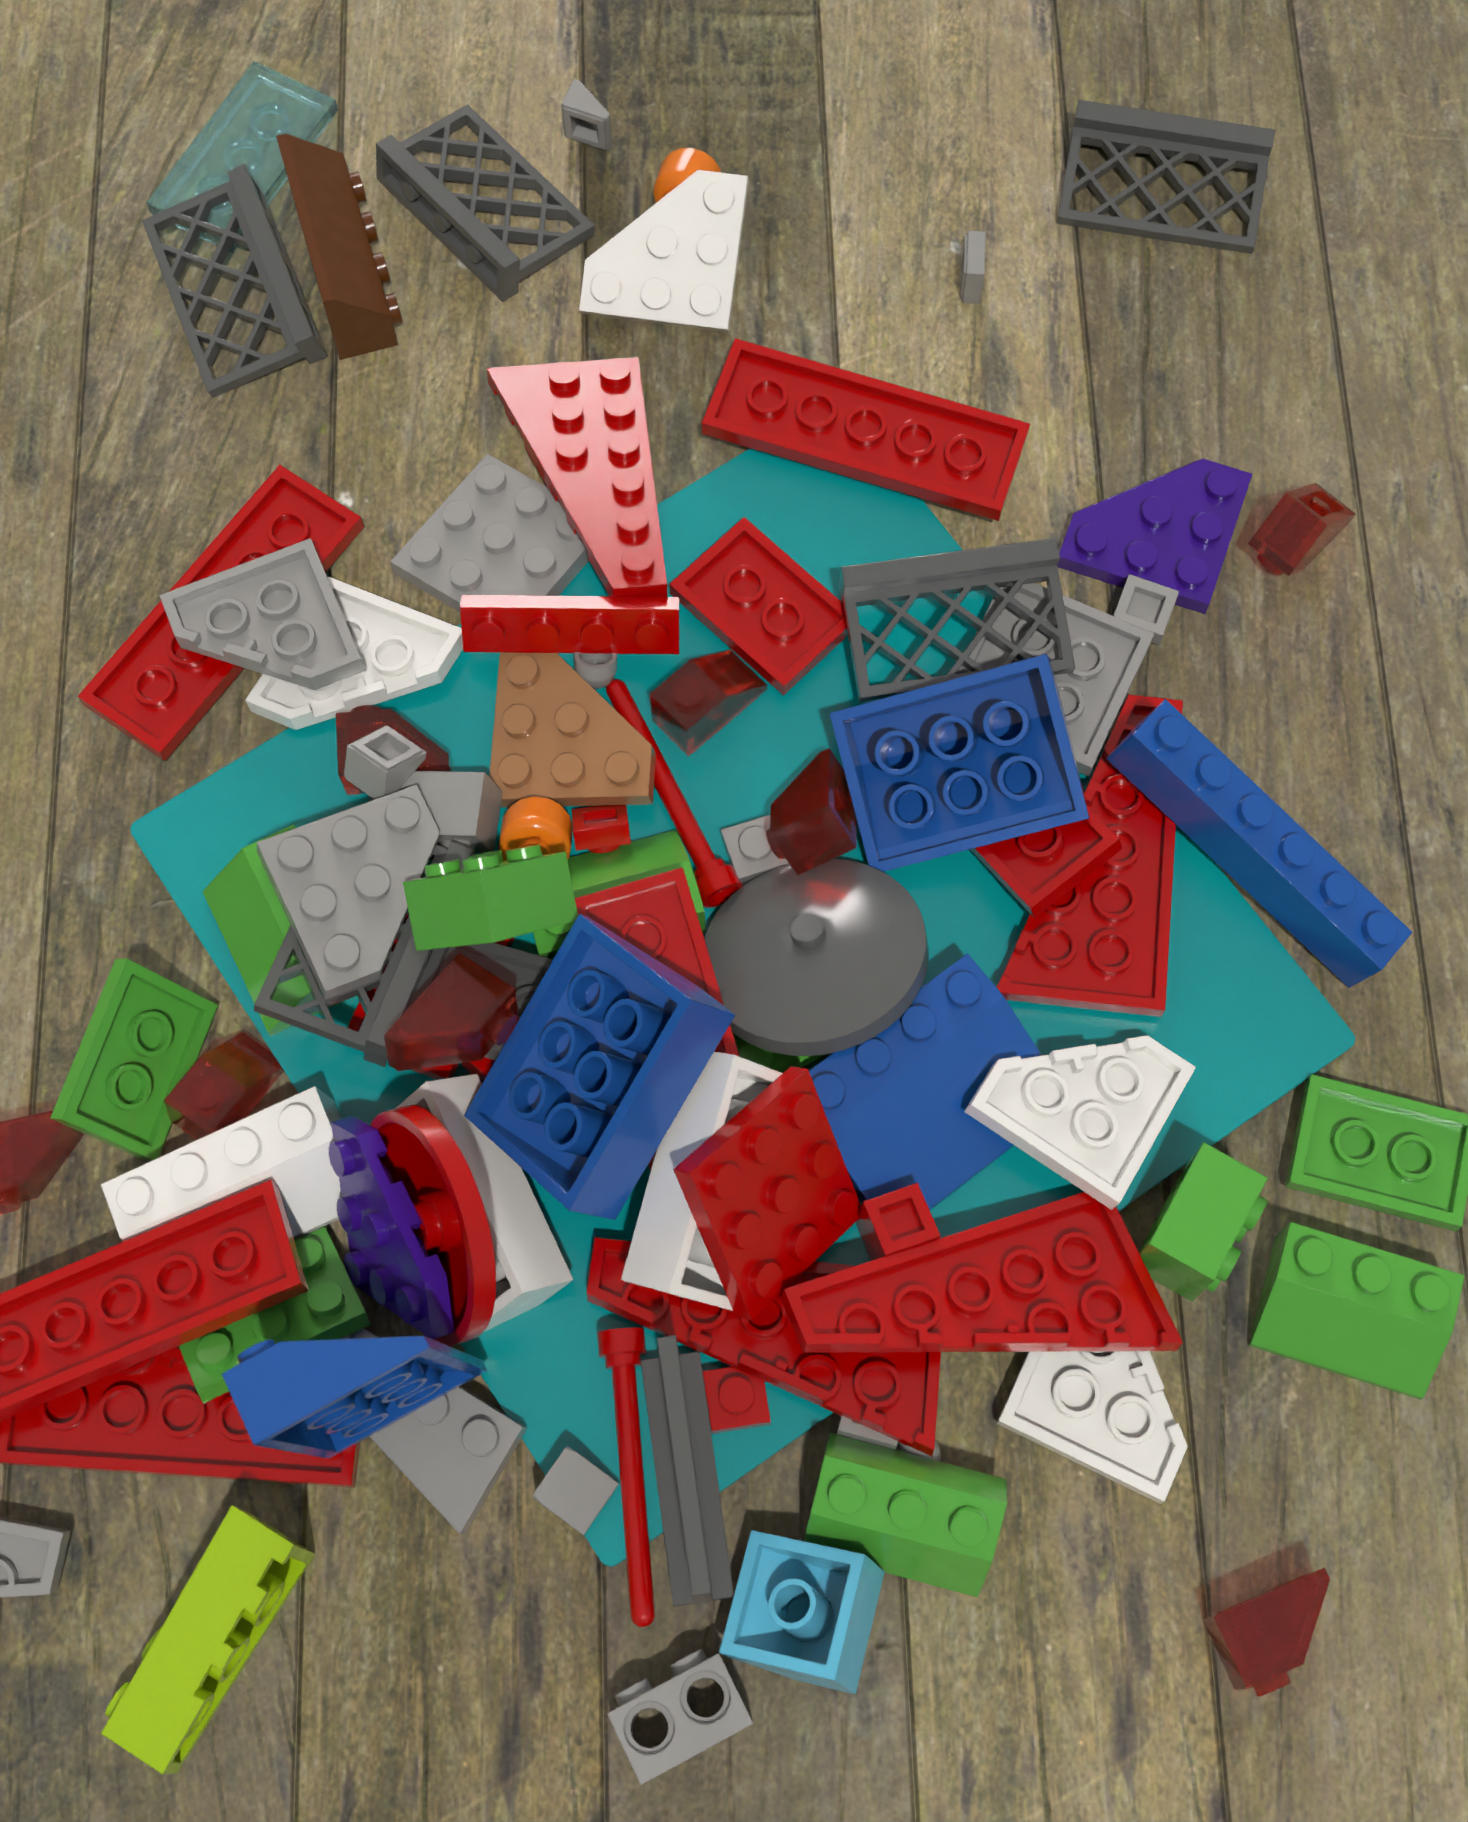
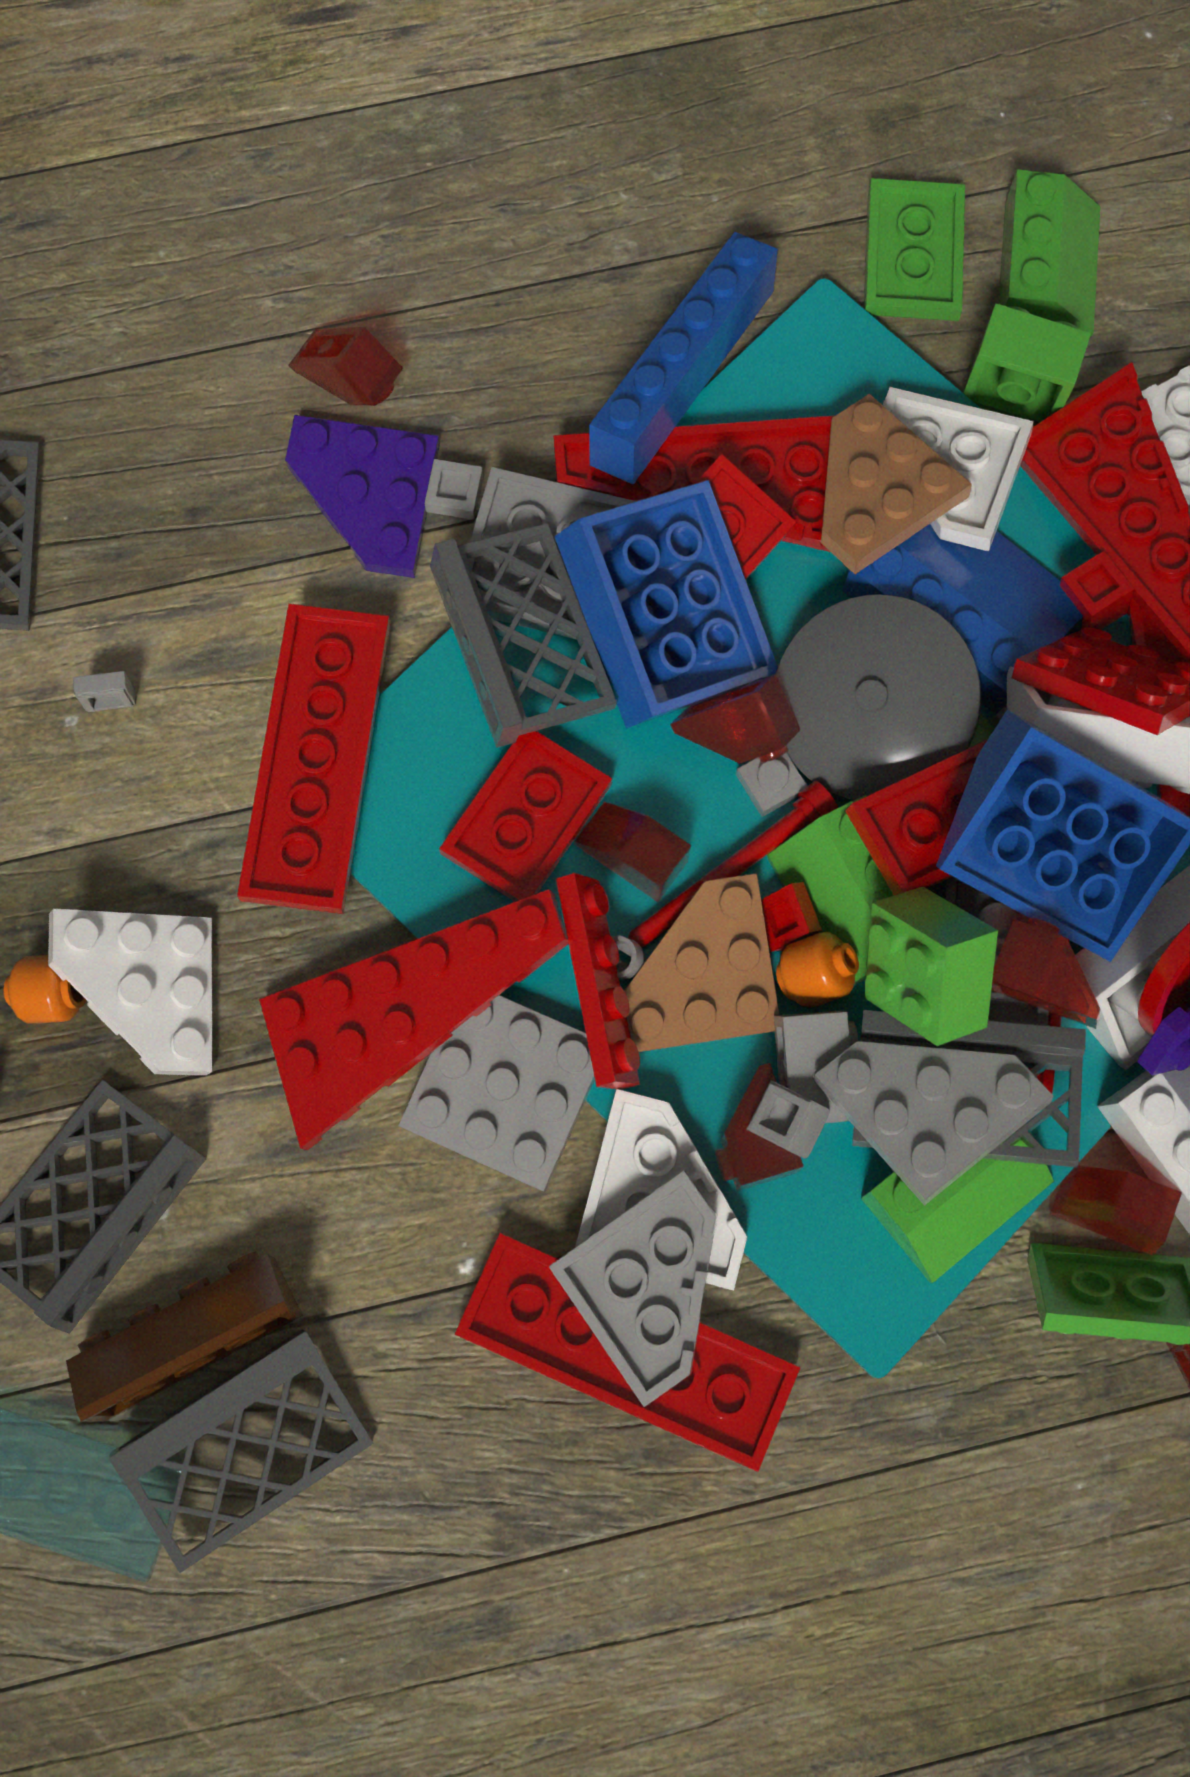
camera: 105 degrees left, 5 degrees up
(1060, 1004) = (881, 485): none -> medium nougat plate

